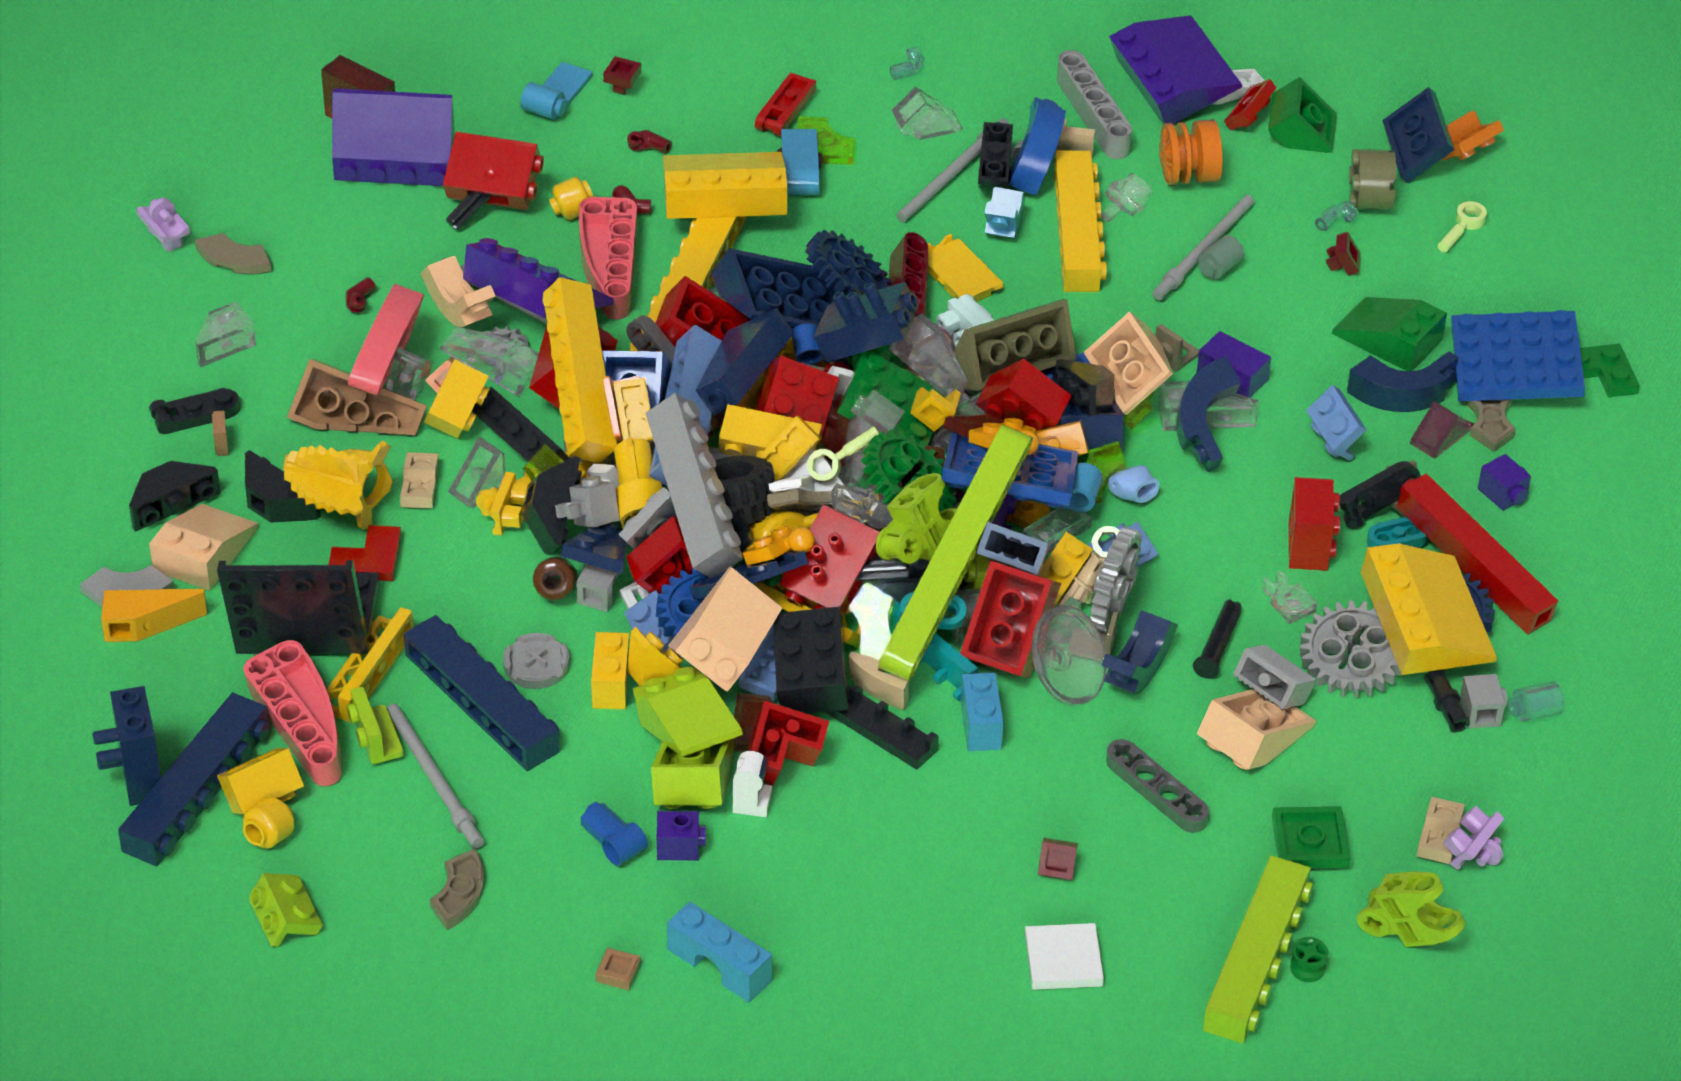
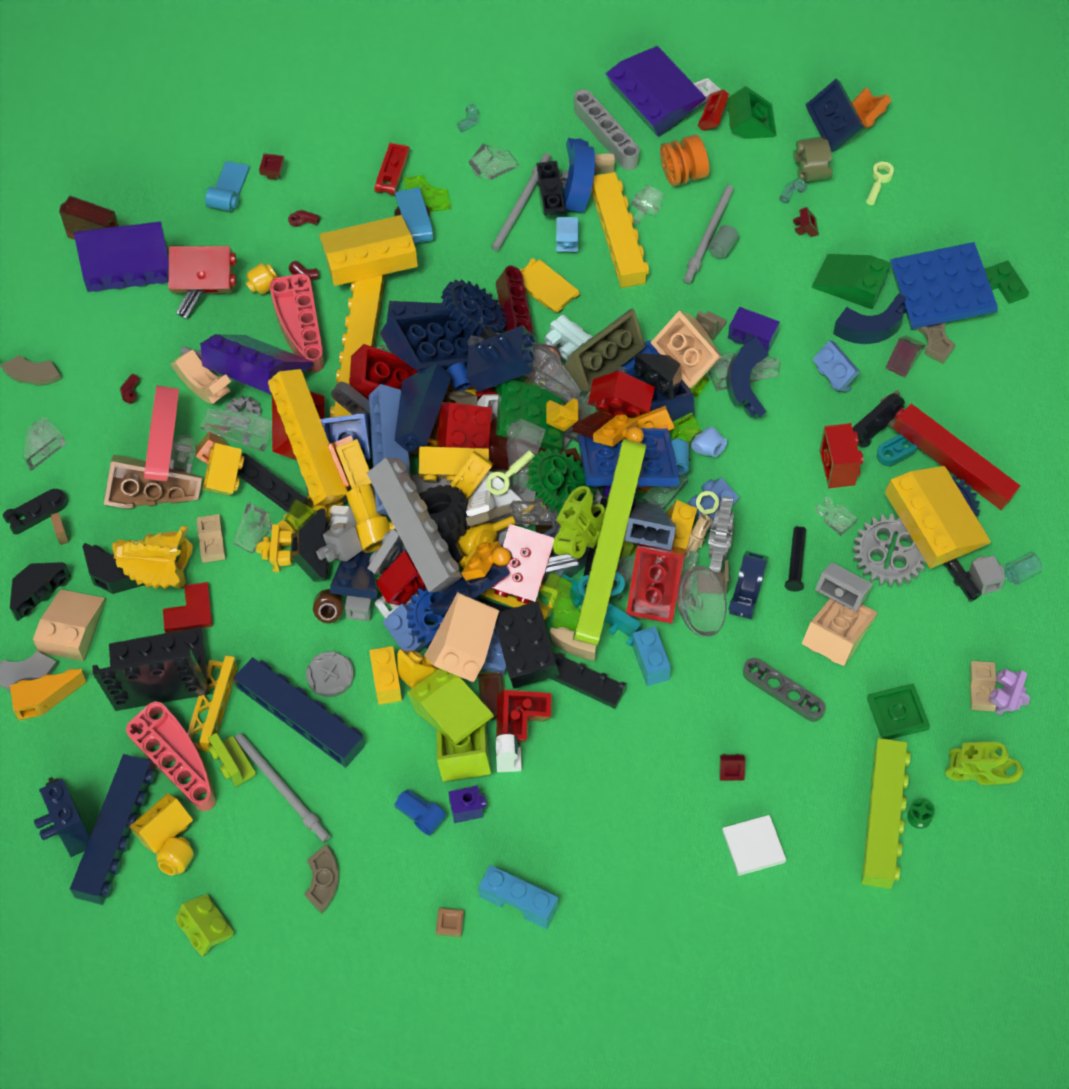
camera: 10 degrees left, 15 degrees up
(1504, 482) = (959, 391): dark purple brick -> none

